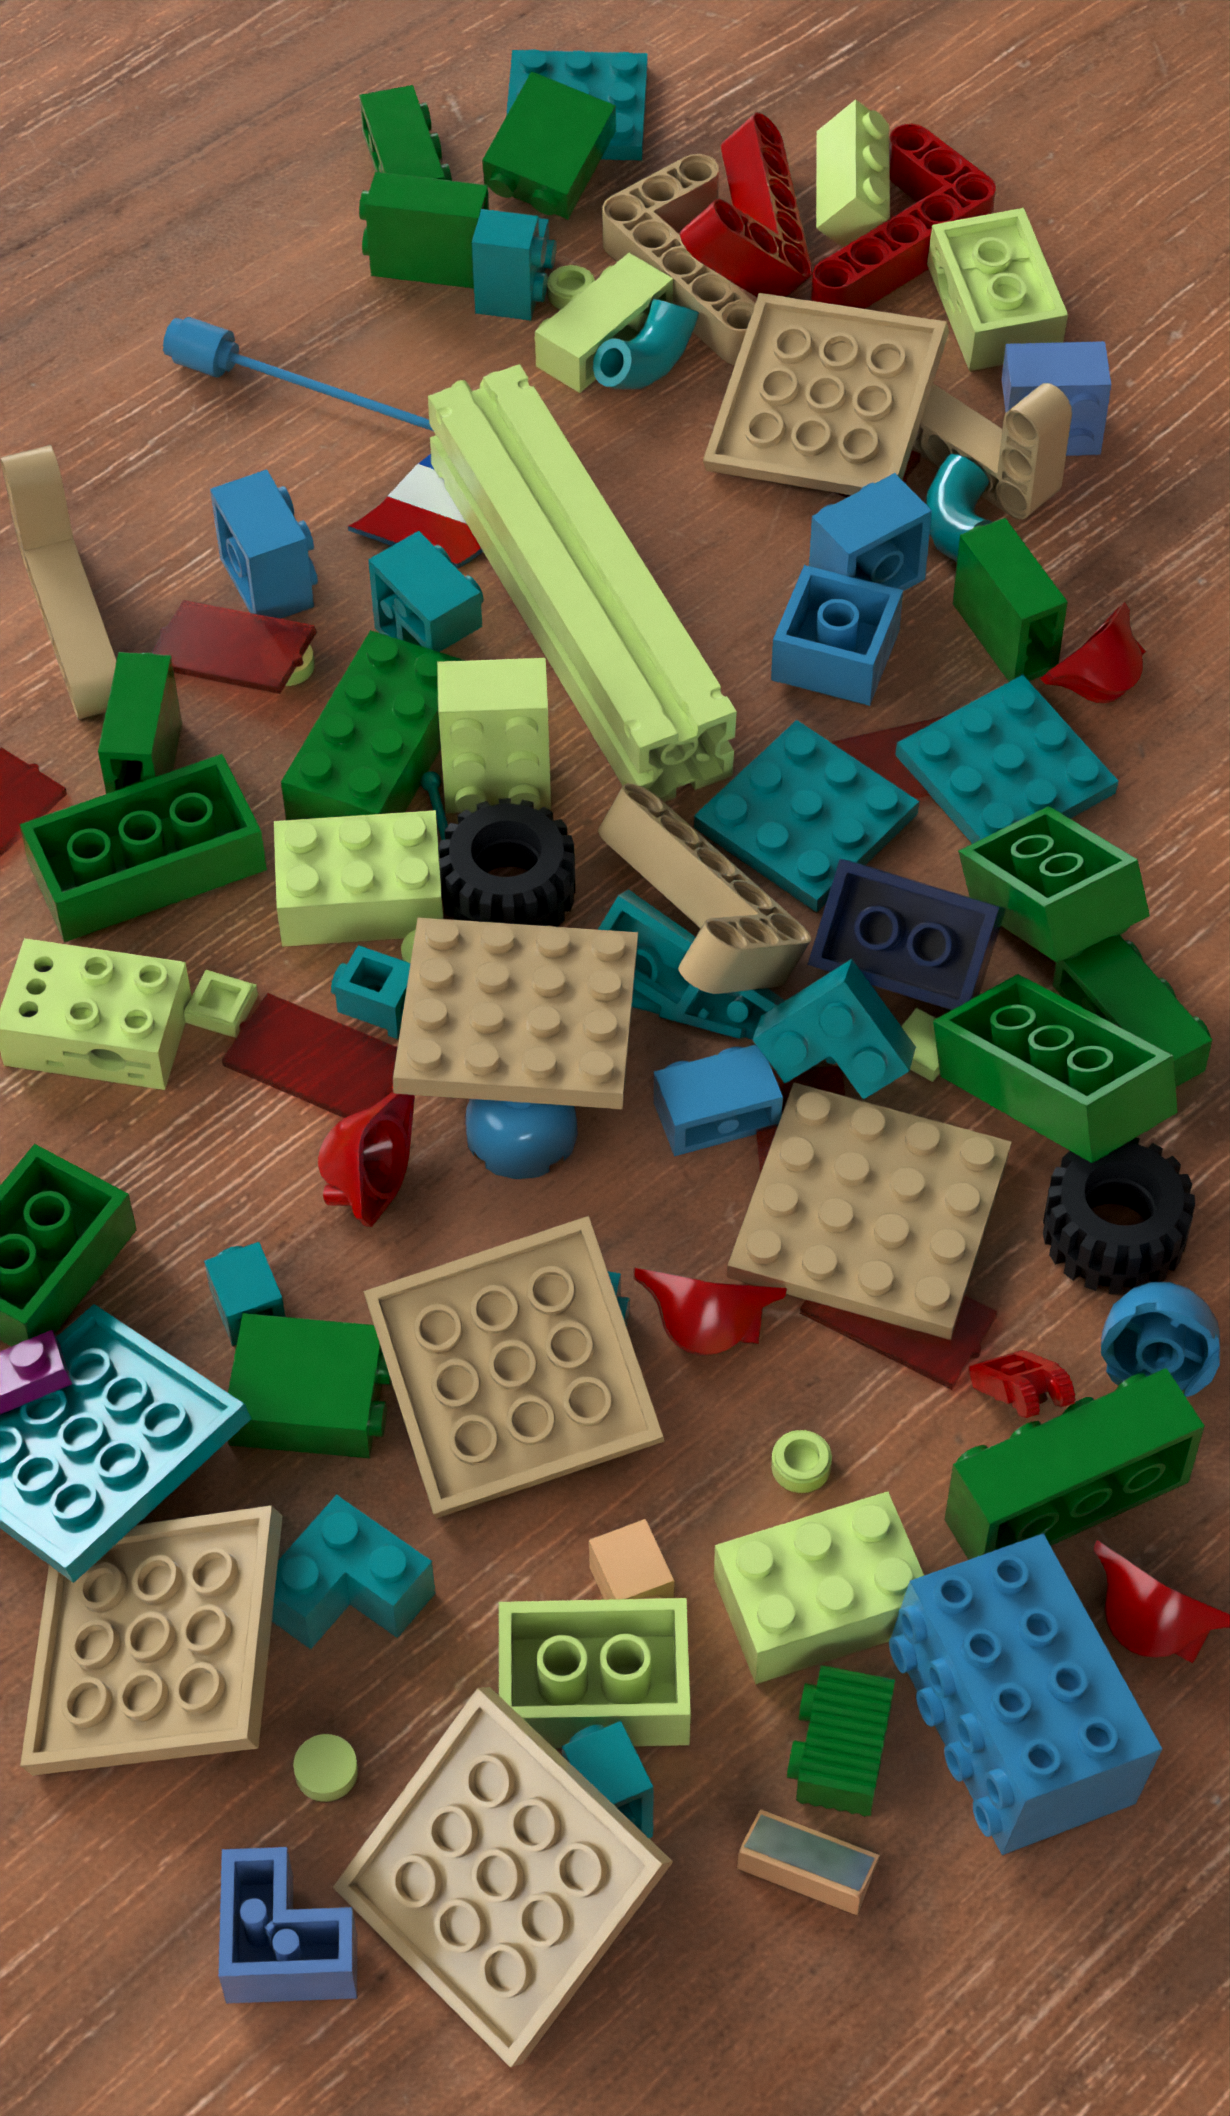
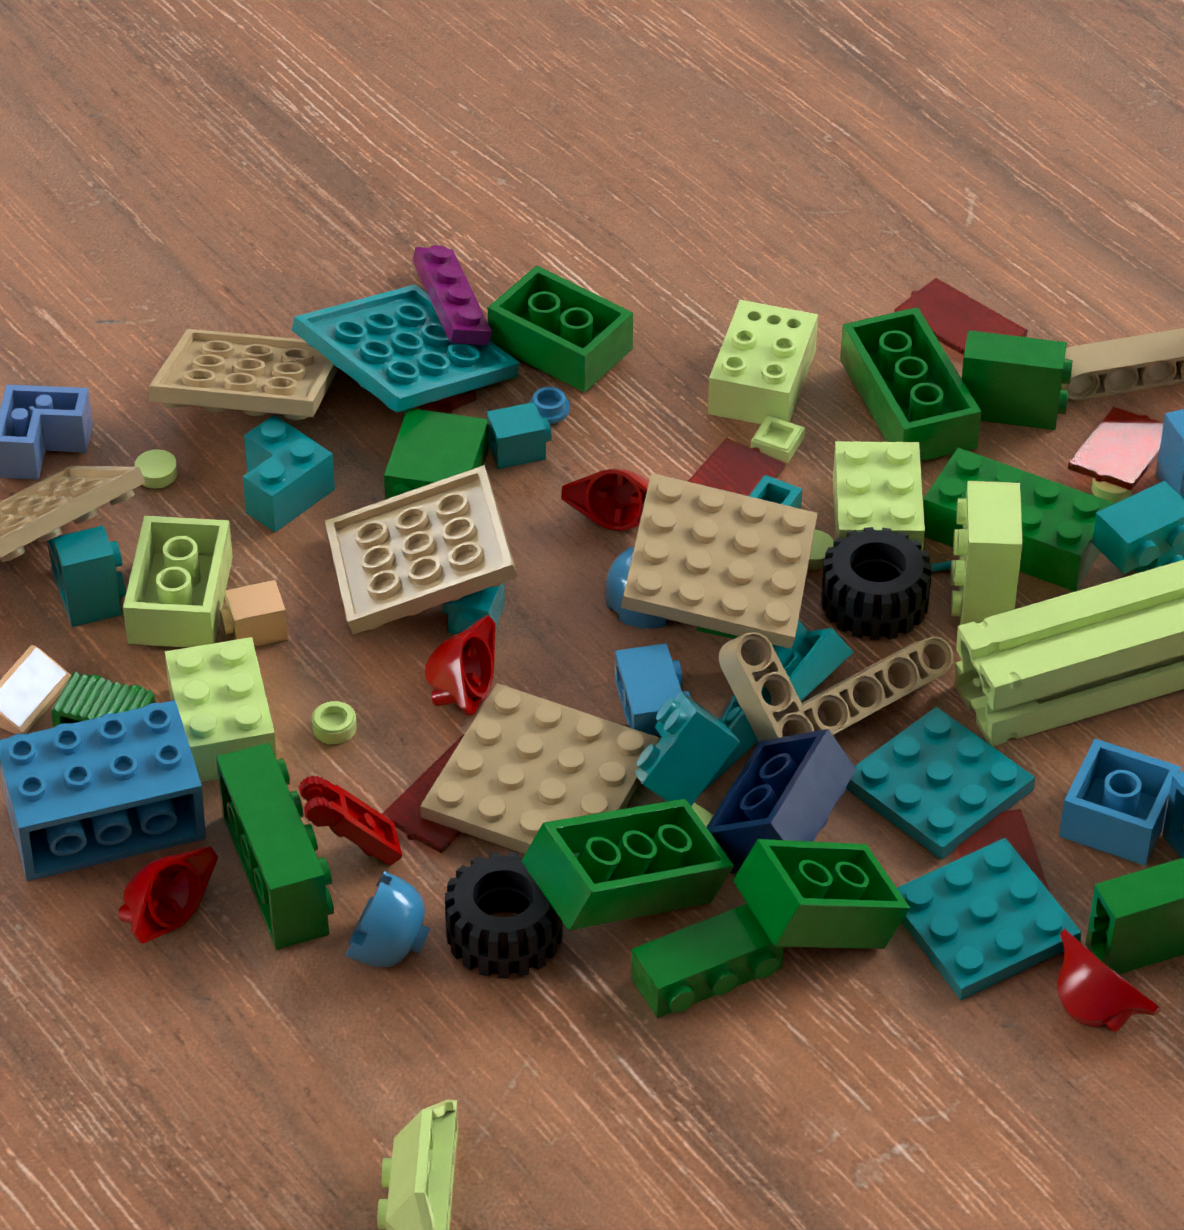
camera: 95 degrees right, 10 degrees down
(173, 1266) = (551, 404): none -> dark azure plate

